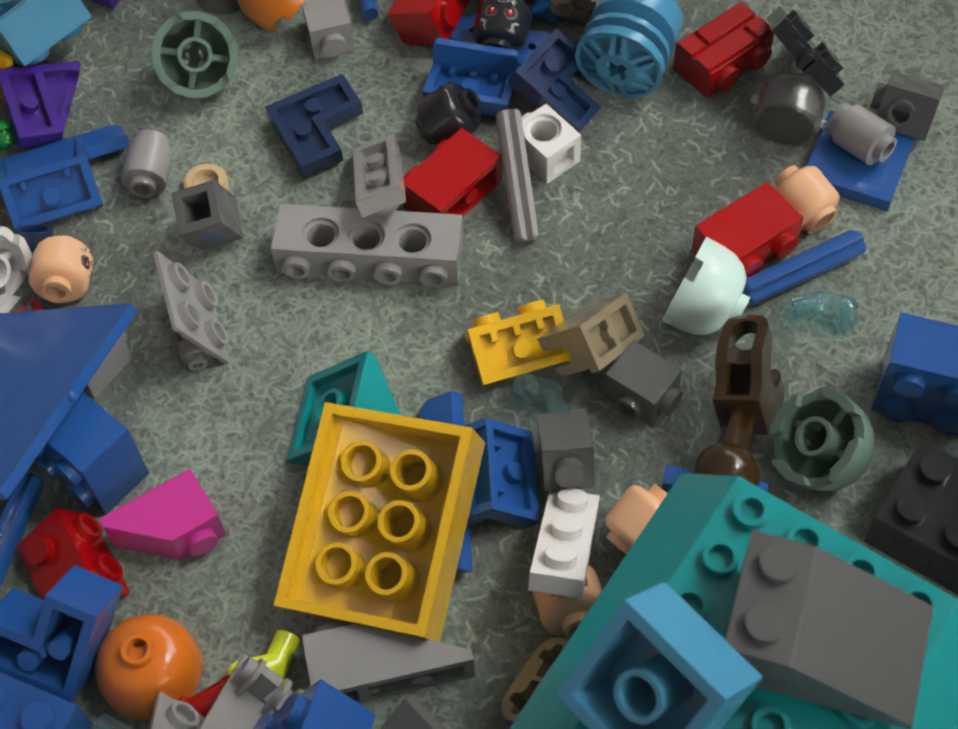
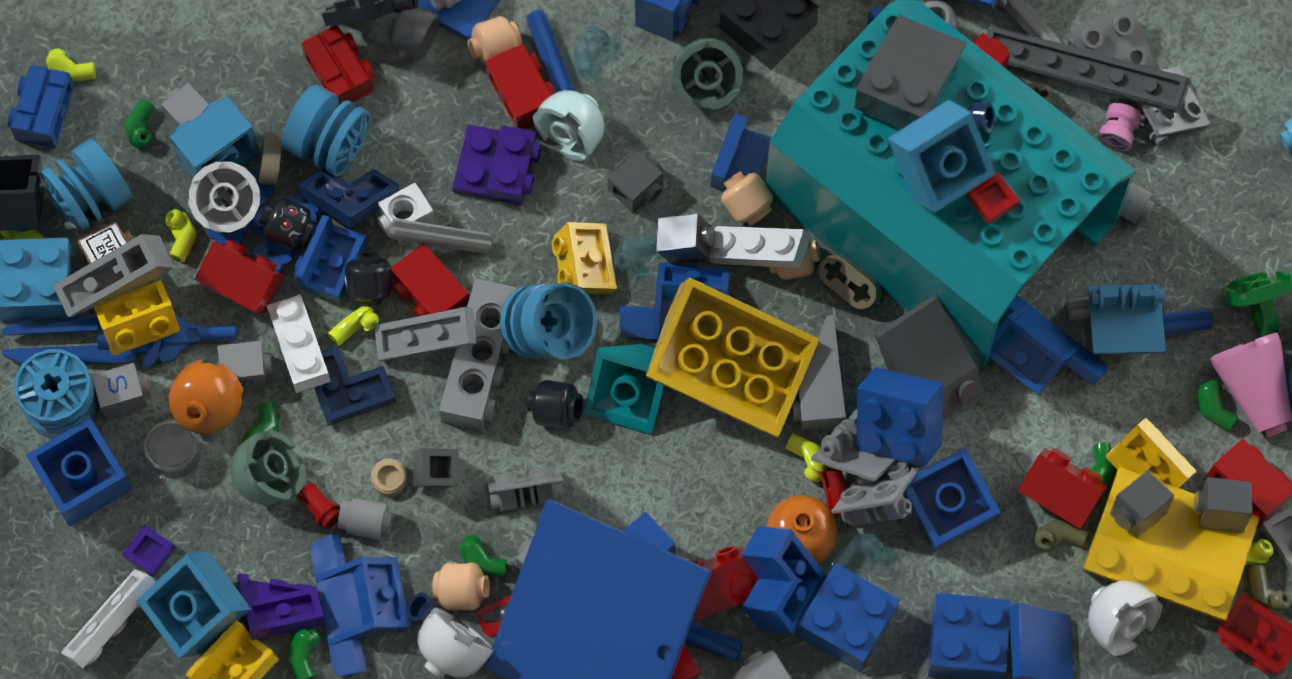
camera: 85 degrees left, 10 degrees up
(104, 281) = (472, 551): none -> green arm
(167, 520) = (695, 509): dark pink slope -> none
(168, 117) = (319, 505): none -> red pin
(257, 62) = (268, 419): none -> green arm
(308, 336) = (555, 404): none -> black head
(357, 65) = (298, 343): none -> white plate
(380, 300) = (548, 321): none -> dark azure wheel
(397, 120) = (361, 317): none -> neon yellow arm
(594, 334) = (597, 203): dark tan hinge -> none
(636, 231) = (497, 163): none -> dark purple plate
(744, 399) = (733, 132): dark brown piece -> none

